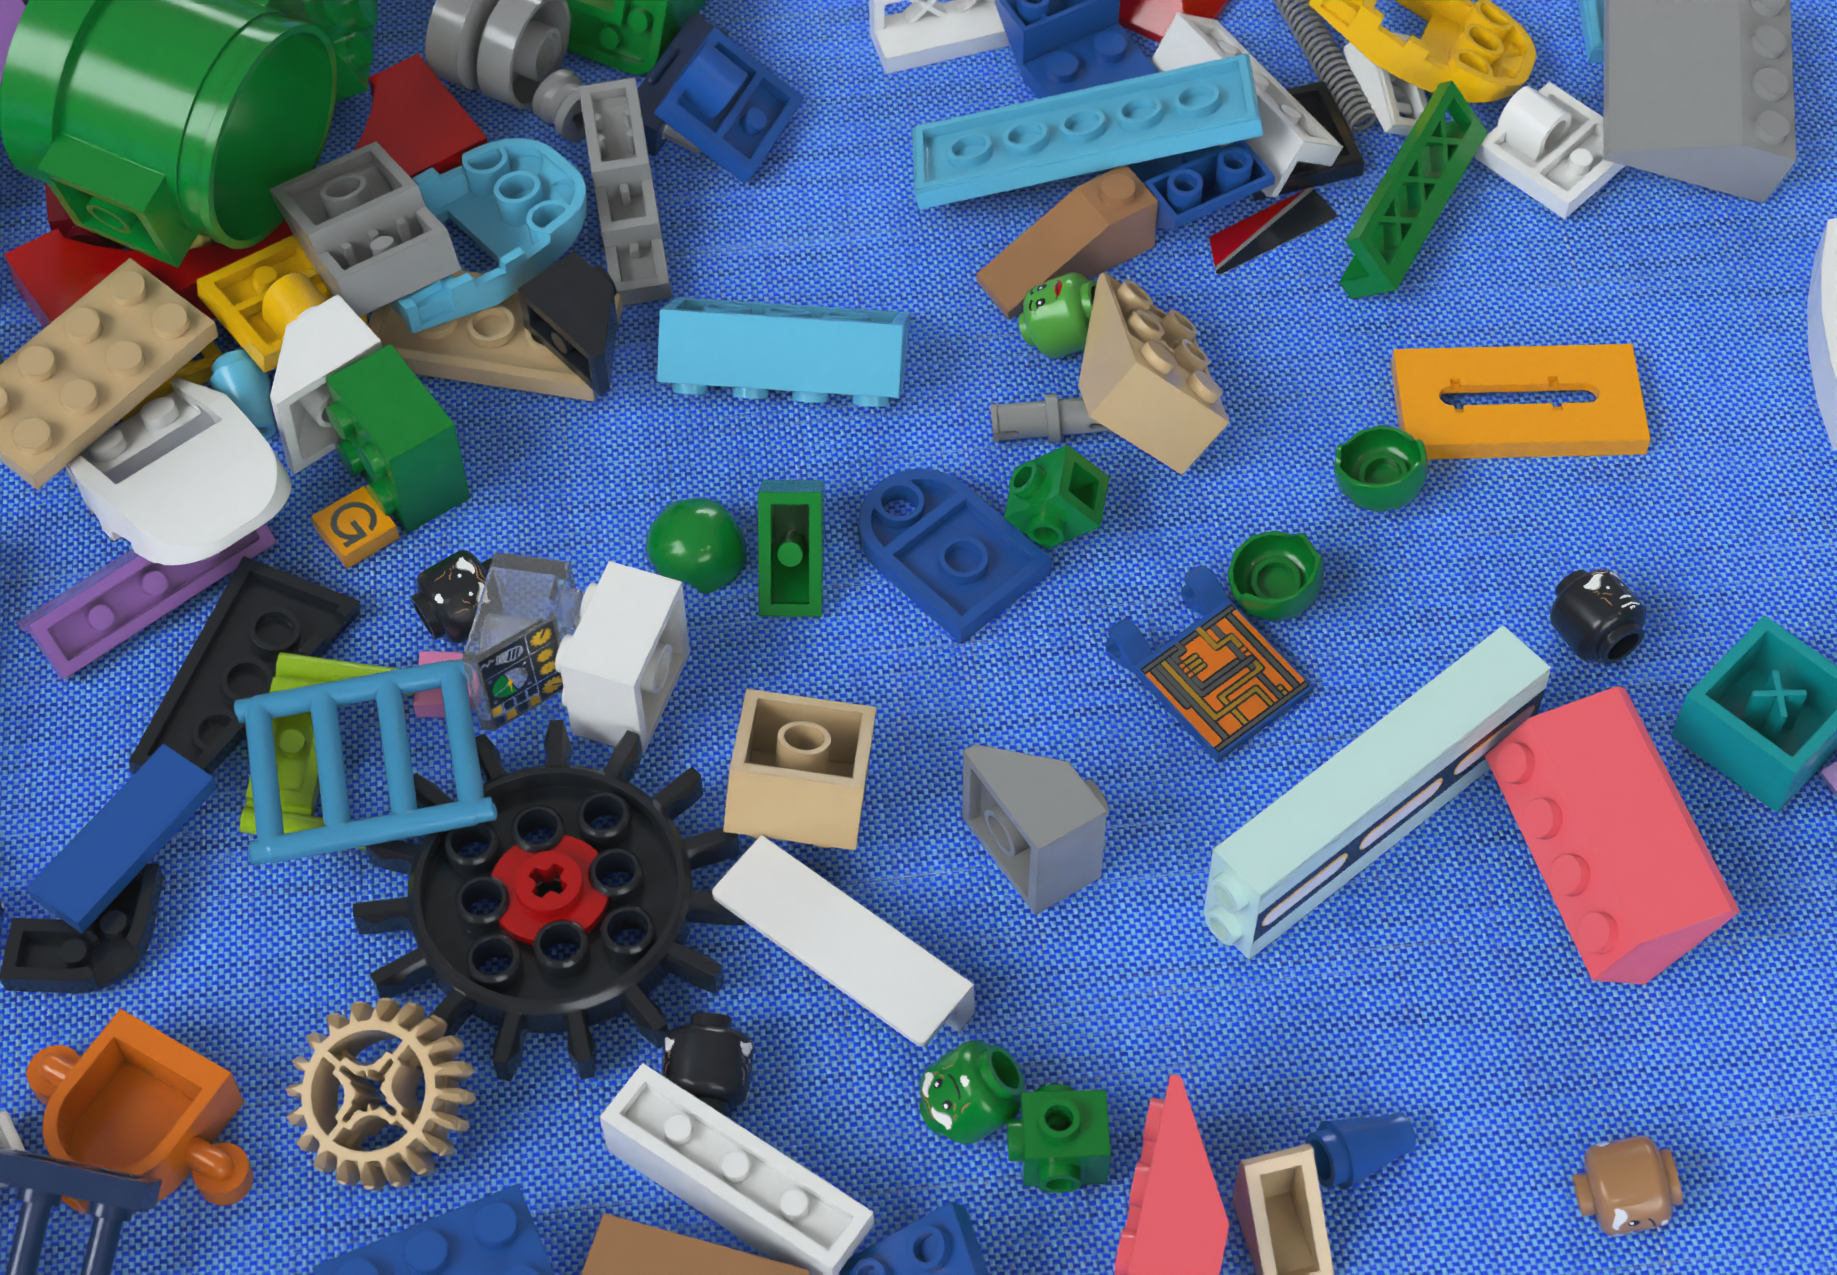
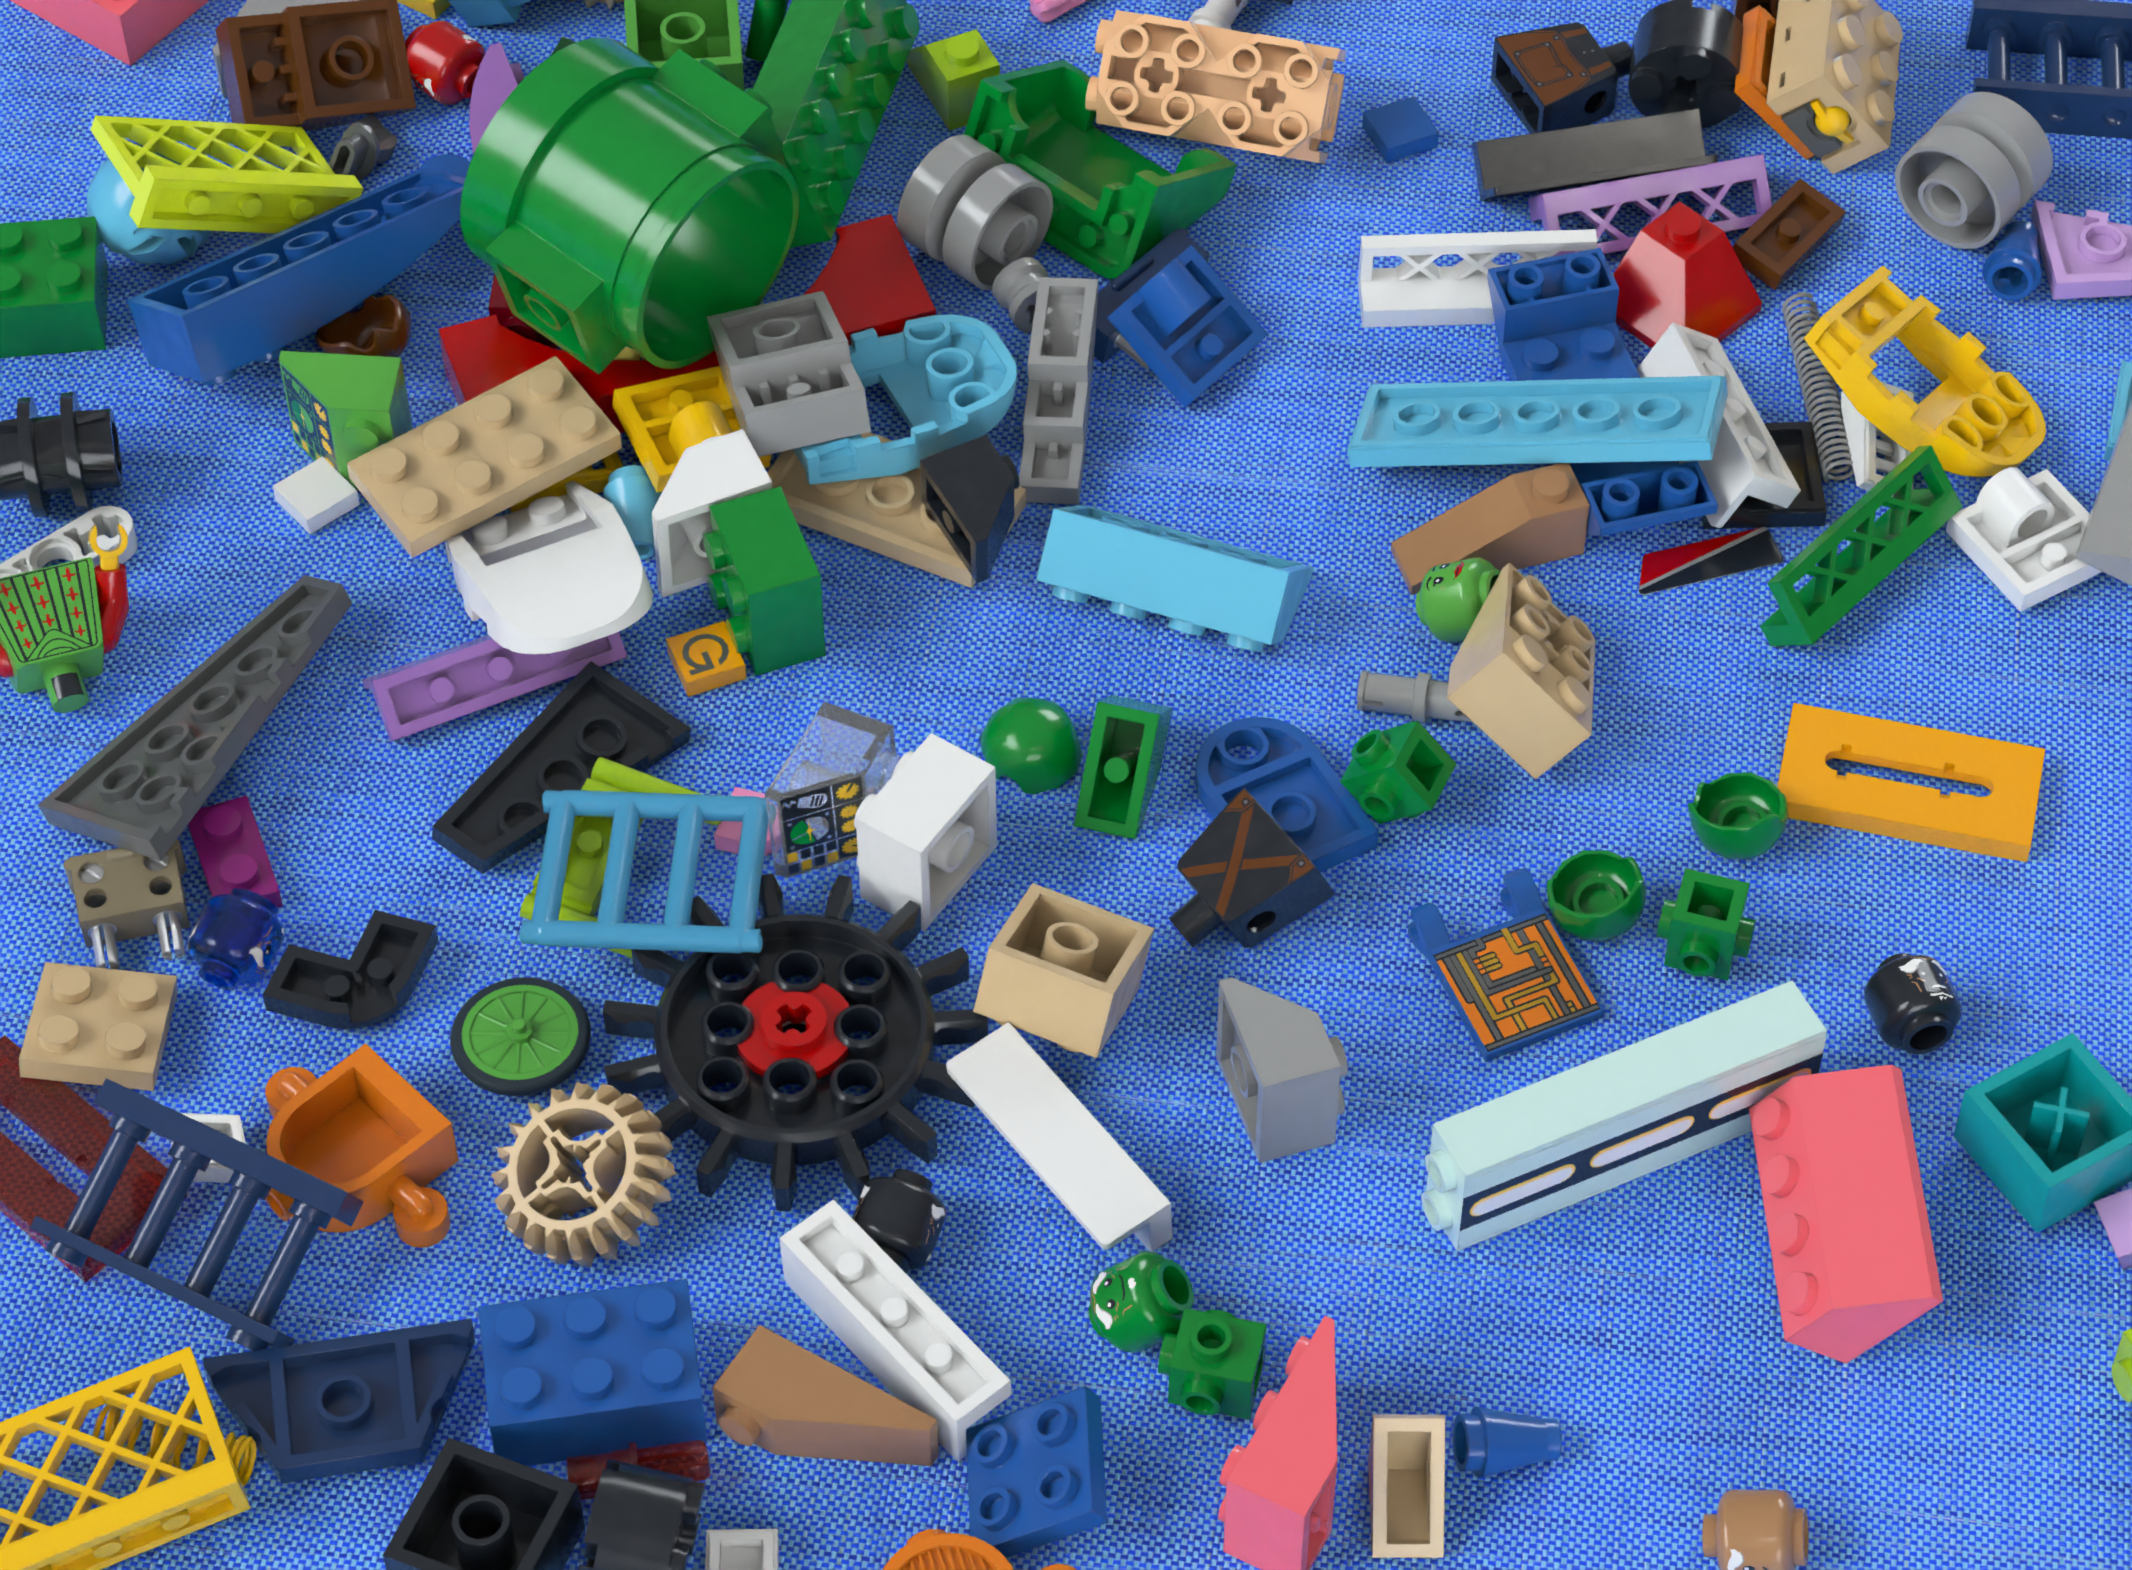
camera: 15 degrees right, 5 degrees down
(122, 838) = (408, 893): blue tile -> none
(274, 959) = (520, 1036): none -> bright green wheel
(451, 595) = (773, 735): black head -> none
(945, 633) = (1246, 877): none -> black torso
(1389, 583) = (1706, 925): none -> green brick

